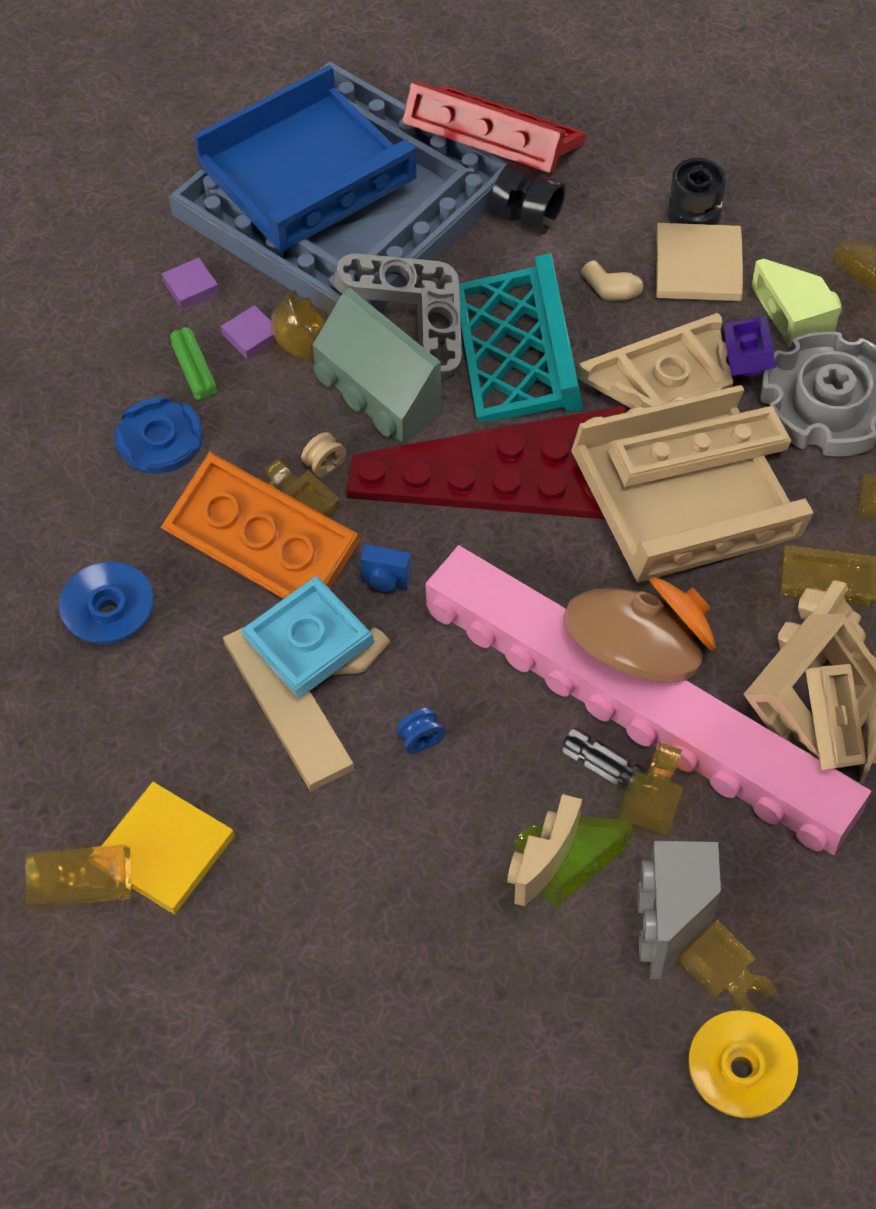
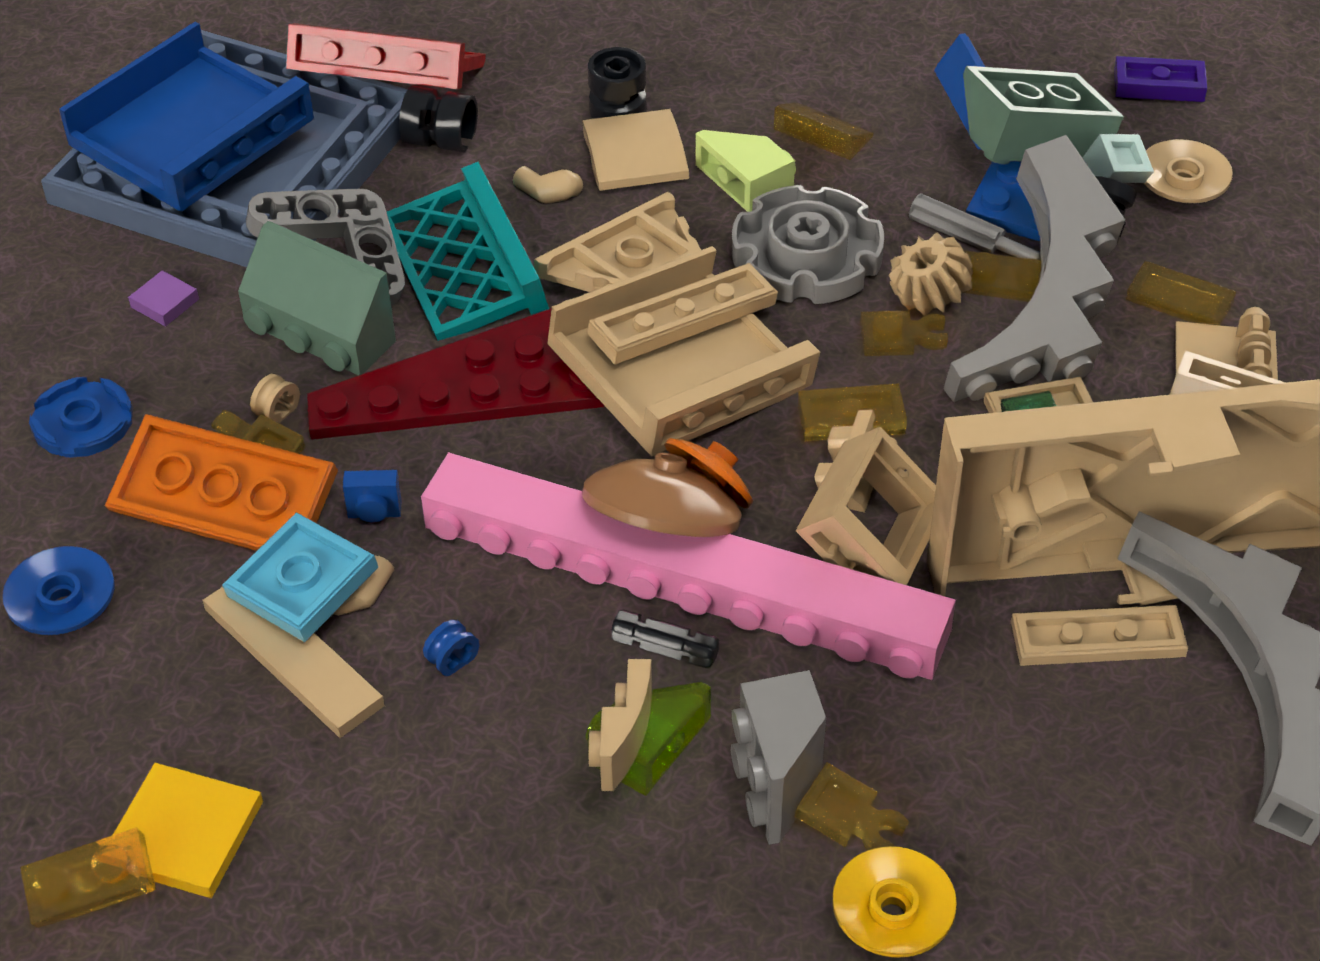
camera: 15 degrees left, 10 degrees down
(190, 283) = (83, 263): medium lavender tile -> none
(193, 364) = (105, 340): bright green axle -> none
(296, 325) = (214, 279): clear yellow hair -> none
(652, 797) = (723, 657): clear yellow plate -> none
(749, 346) = (710, 214): dark purple plate -> none
(836, 716) = (899, 530): tan tile -> none

